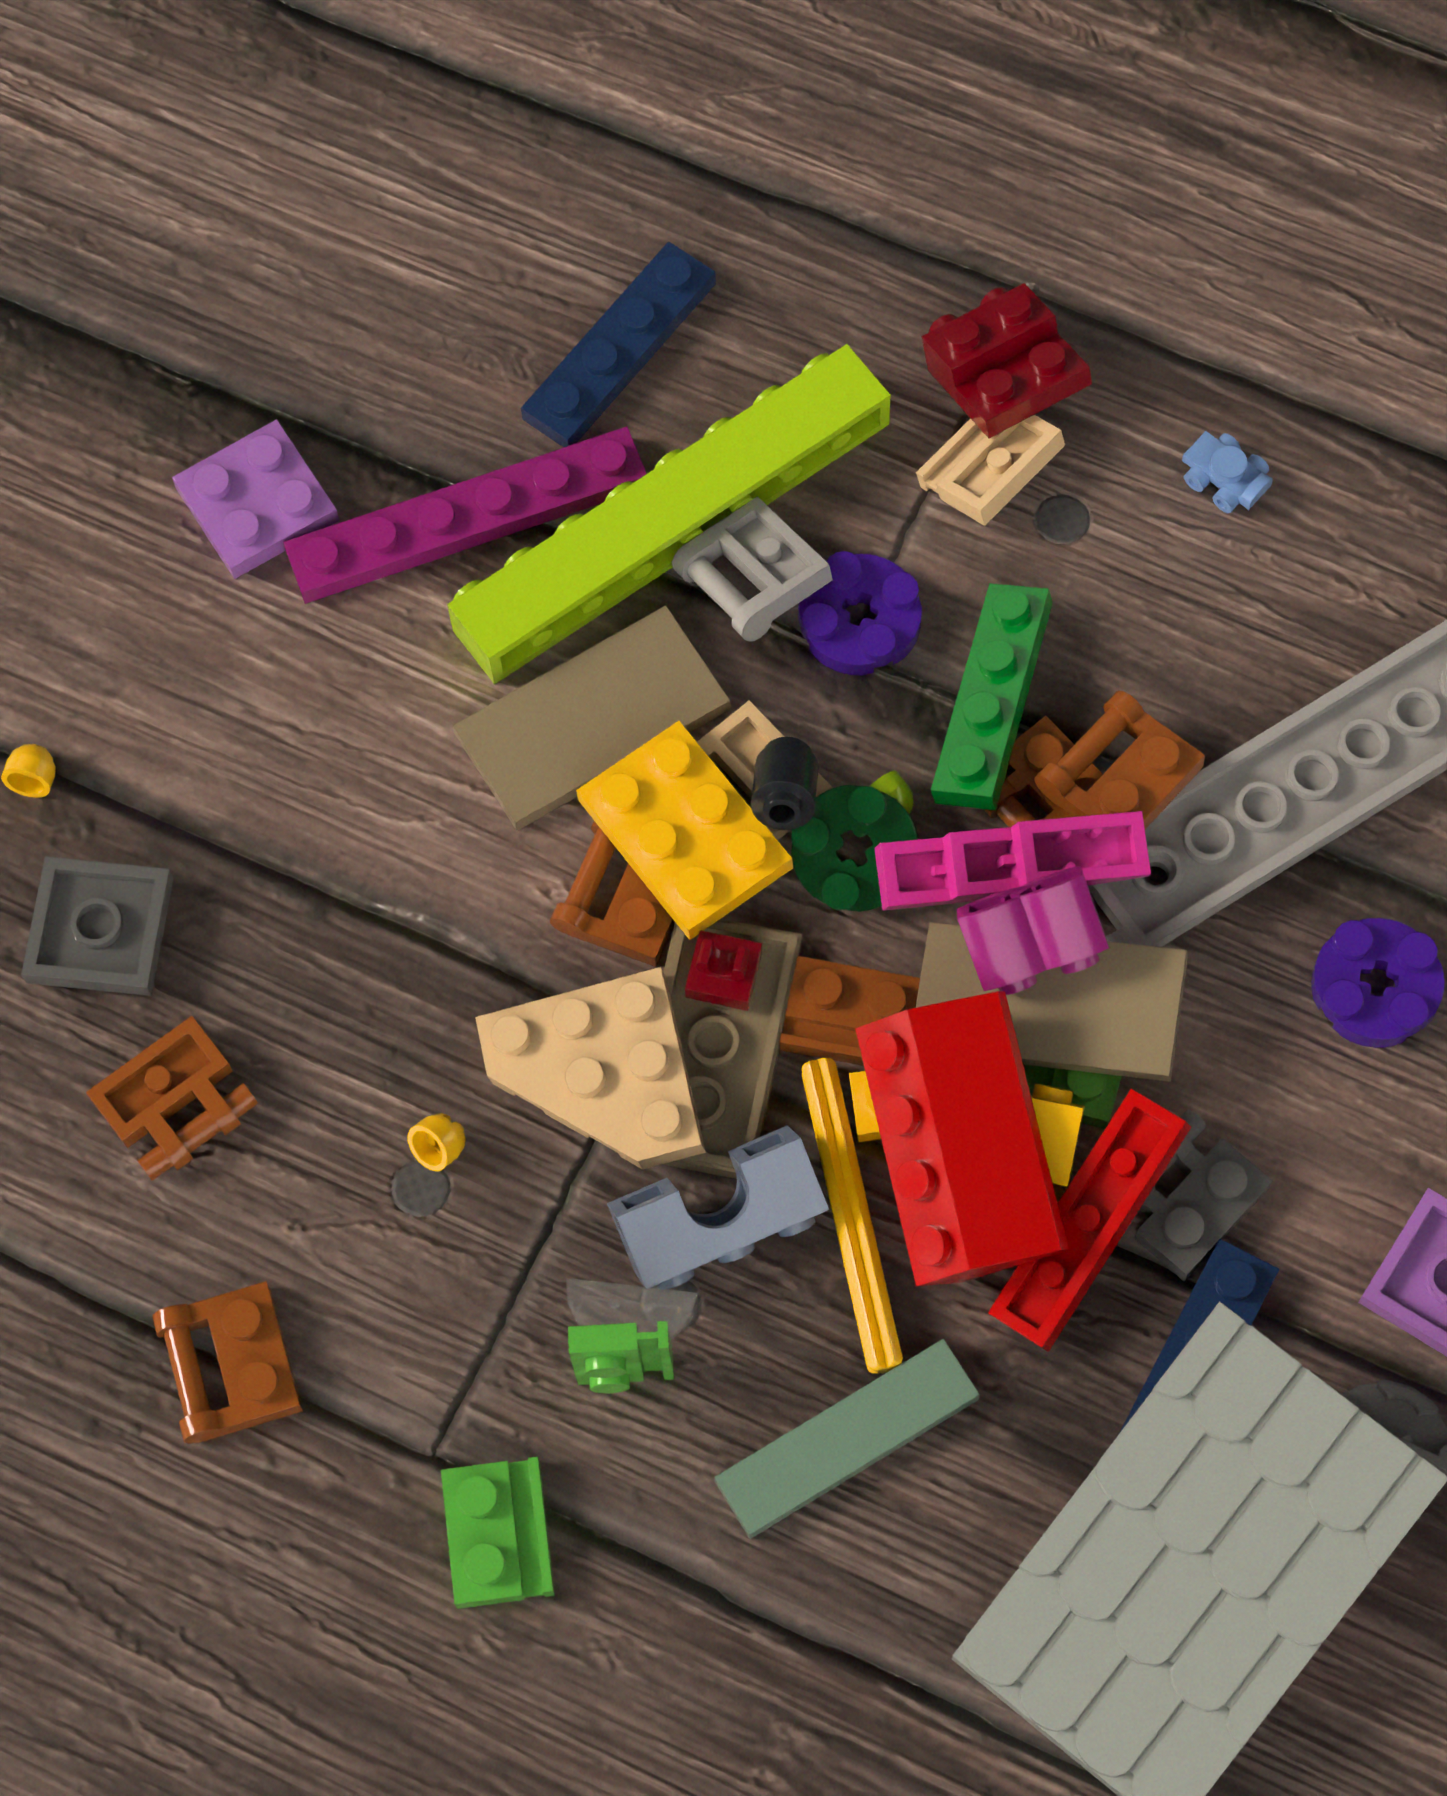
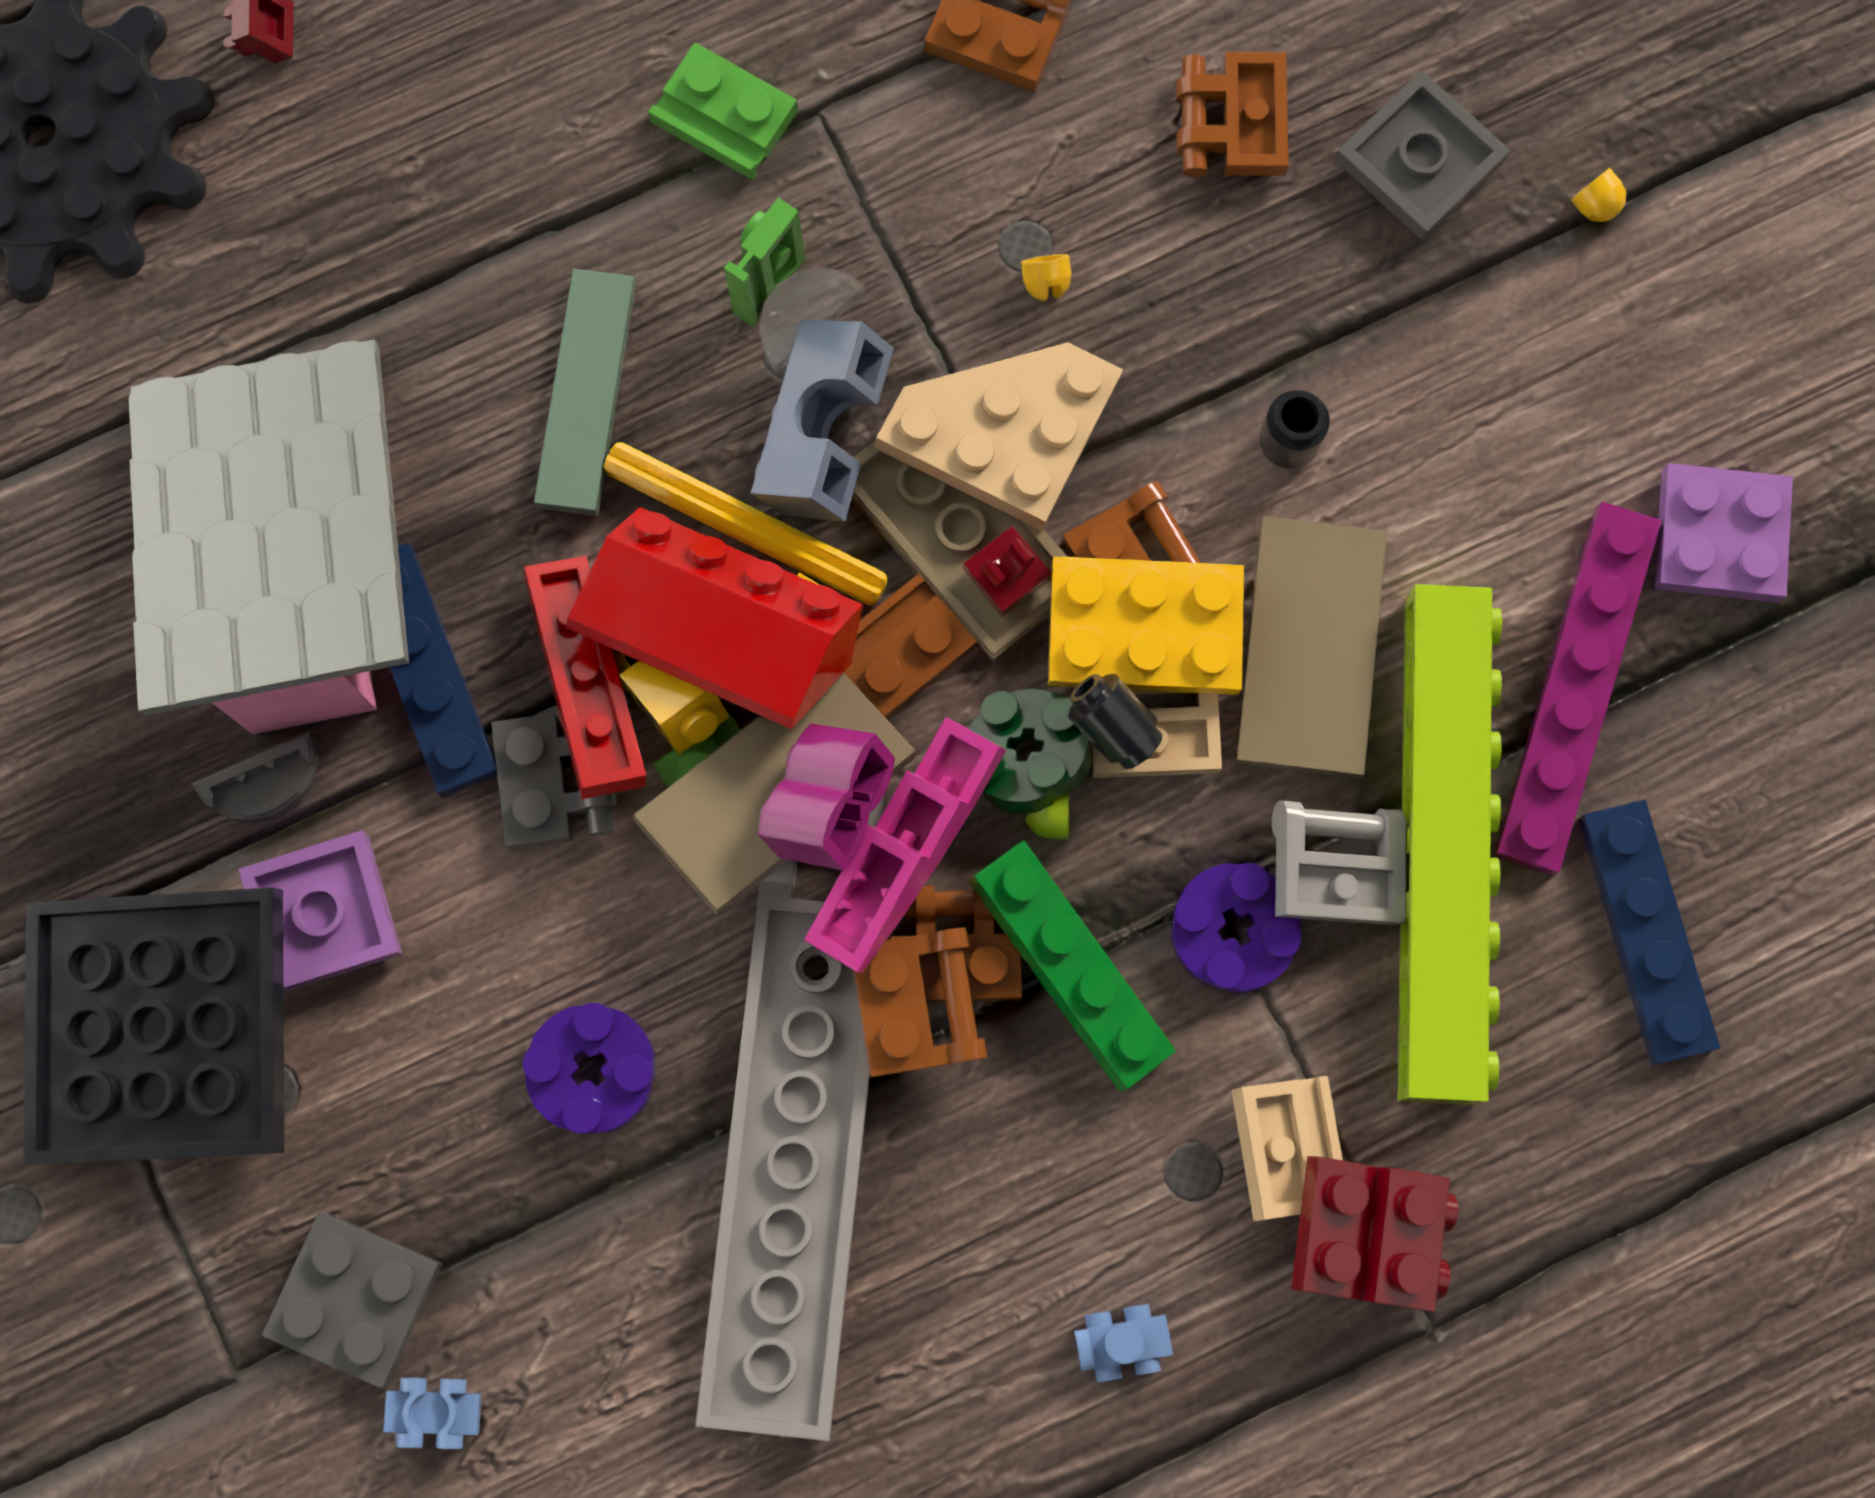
camera: 125 degrees right, 10 degrees up
(426, 842) = (1294, 429): none -> black brick

